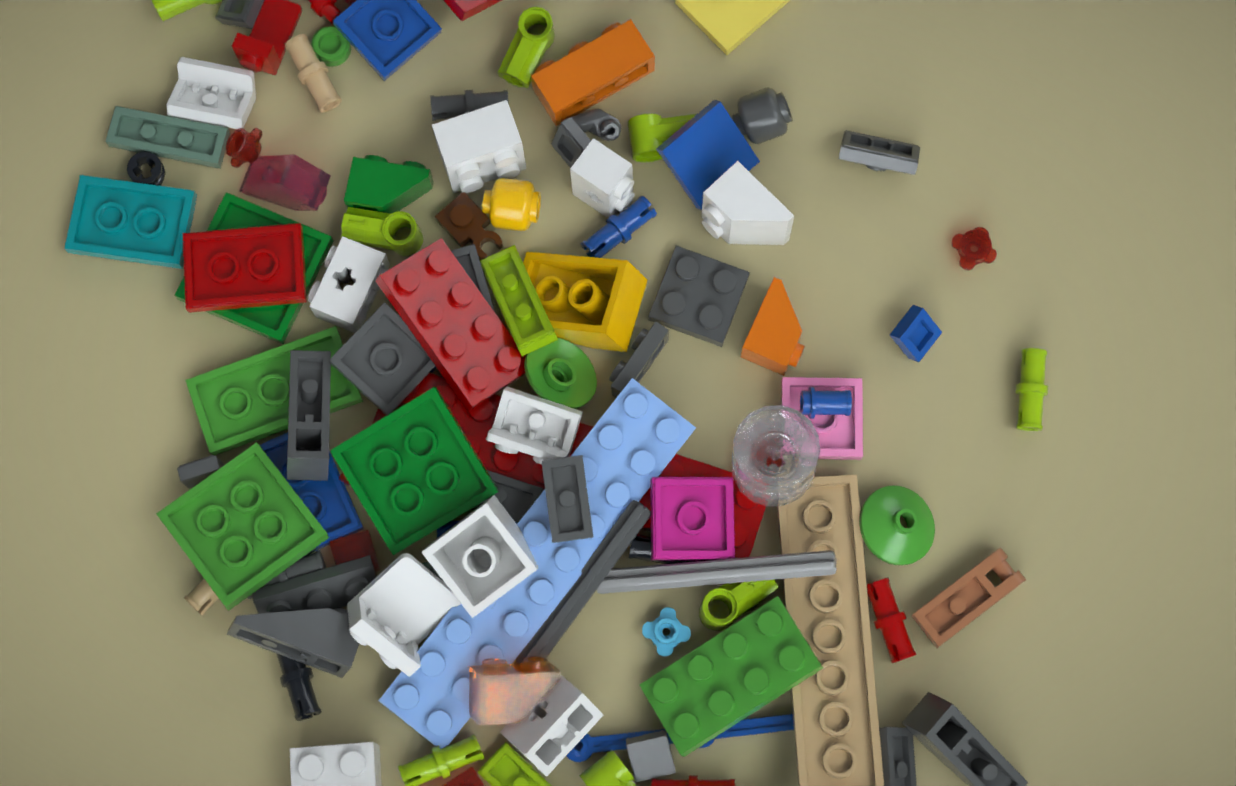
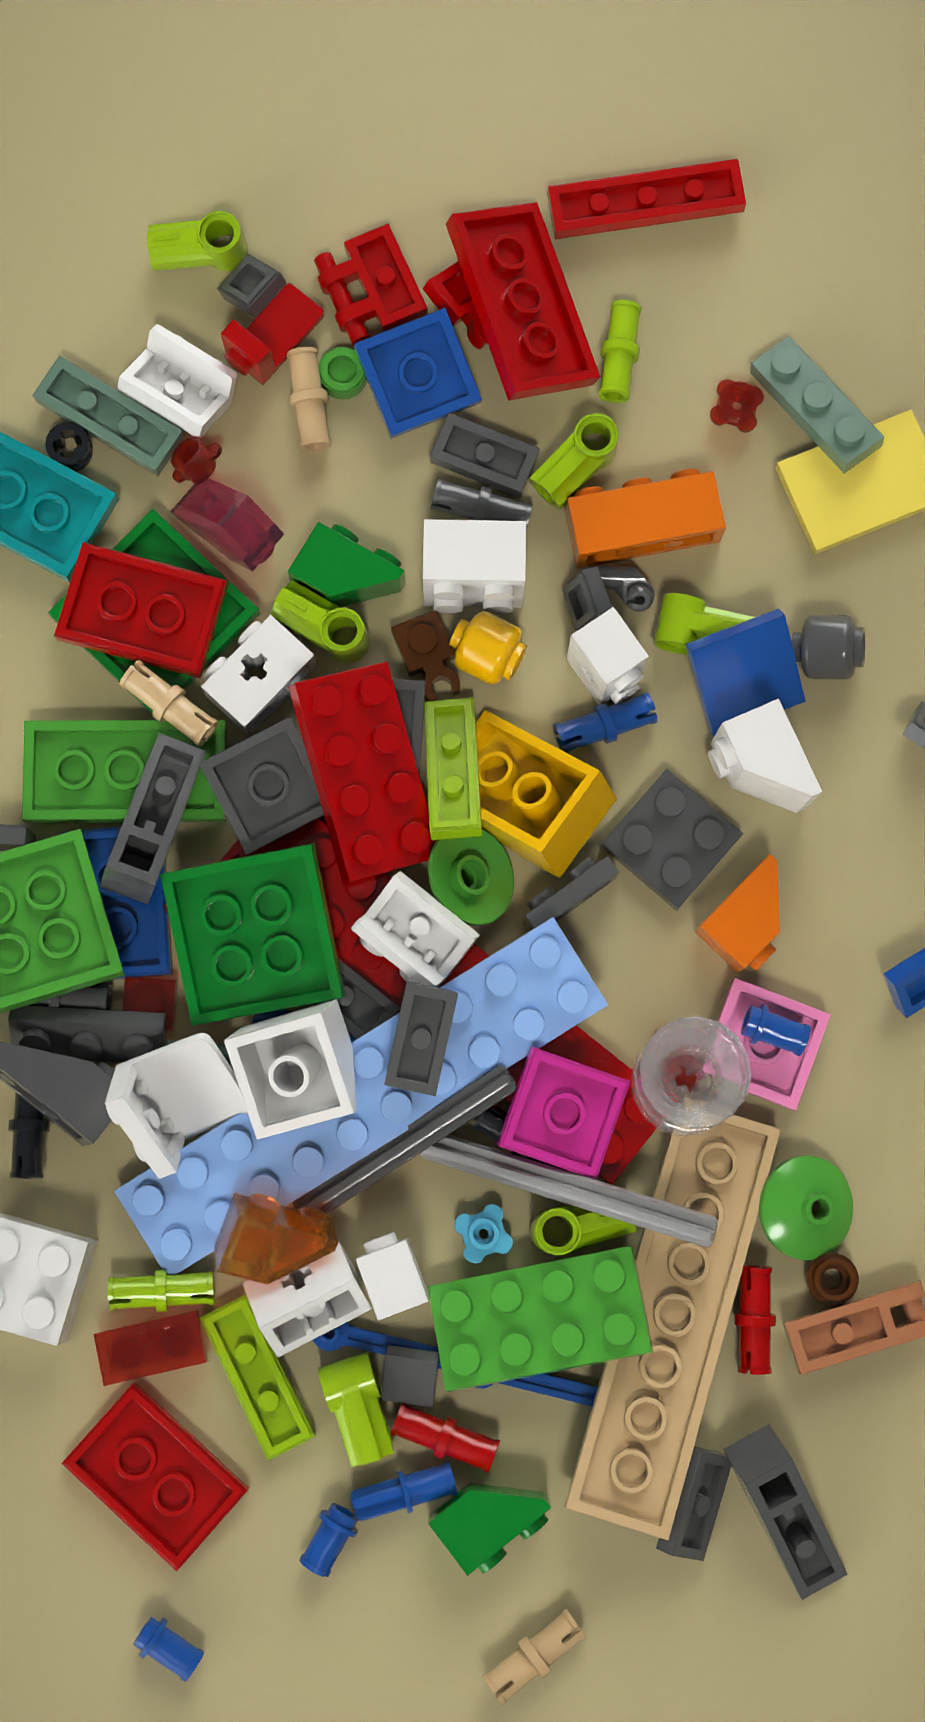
camera: 15 degrees right, 5 degrees up
(289, 327) = (168, 703): none -> tan pin
(458, 68) = (484, 455): none -> dark grey plate
(609, 682) = (391, 1275): none -> white brick
(941, 559) = (848, 1279): none -> reddish brown plate

